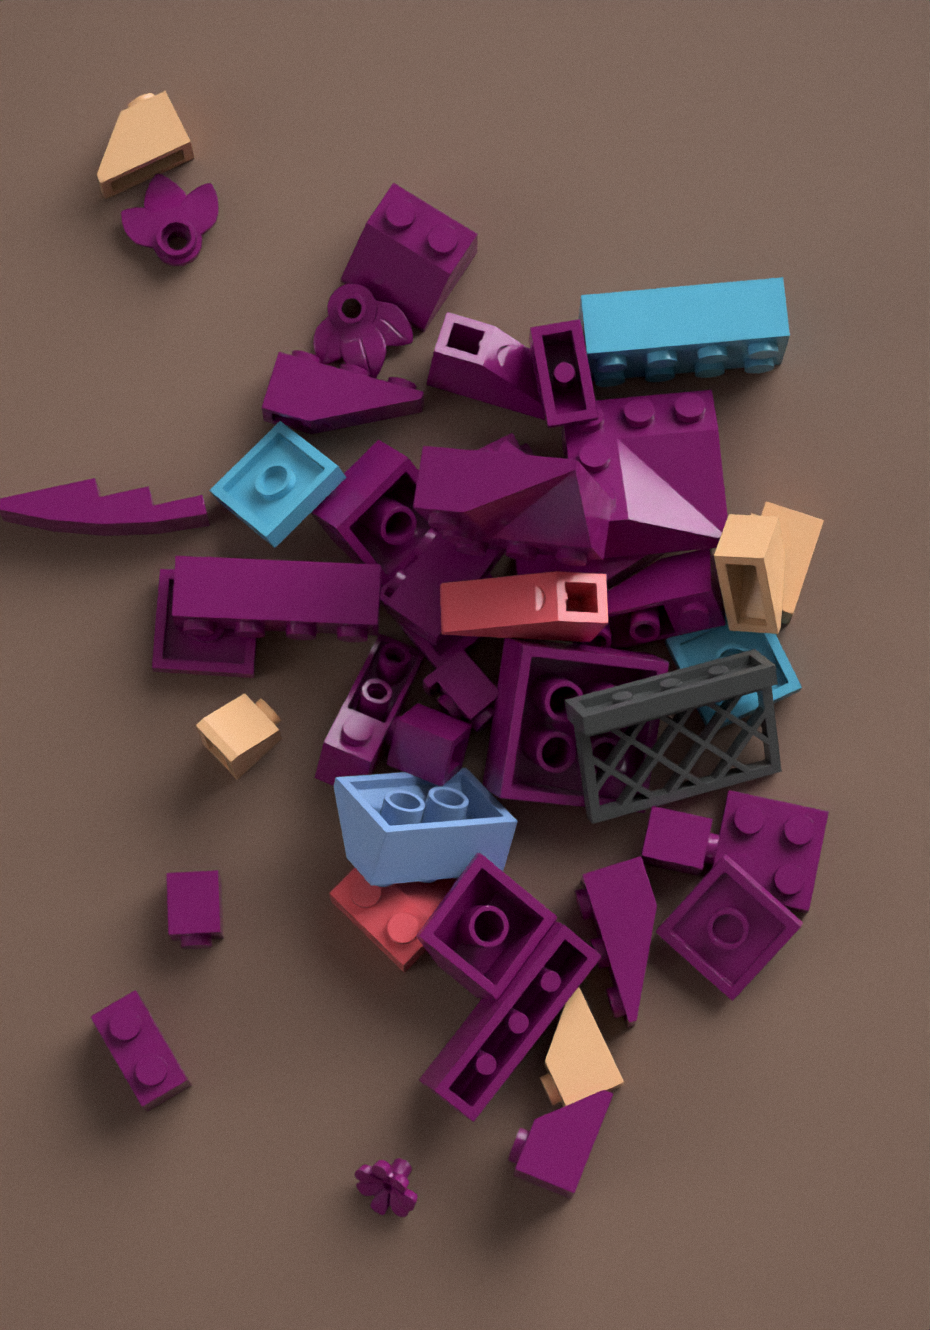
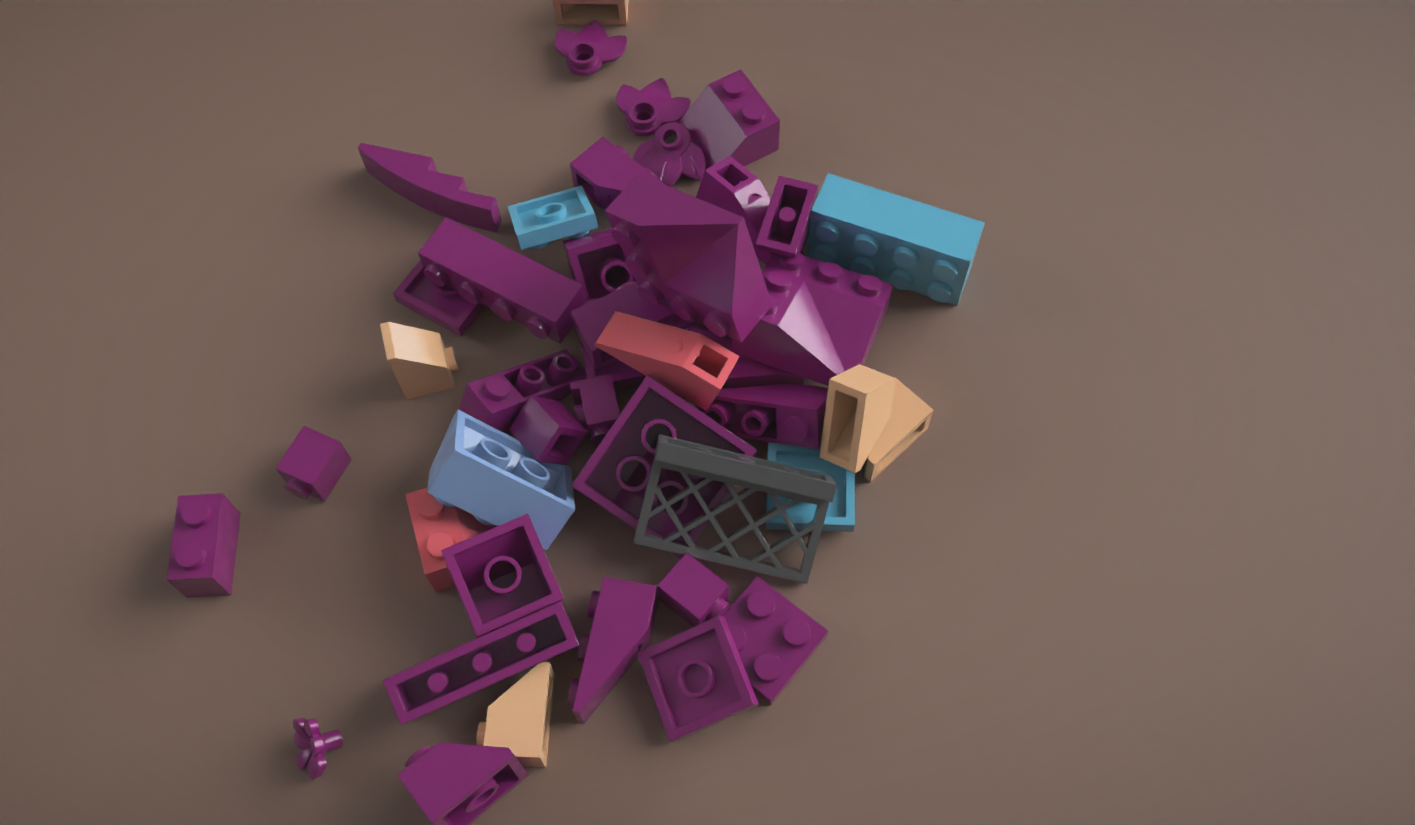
camera: 30 degrees right, 15 degrees down
(297, 264) = (650, 107): none -> magenta plate

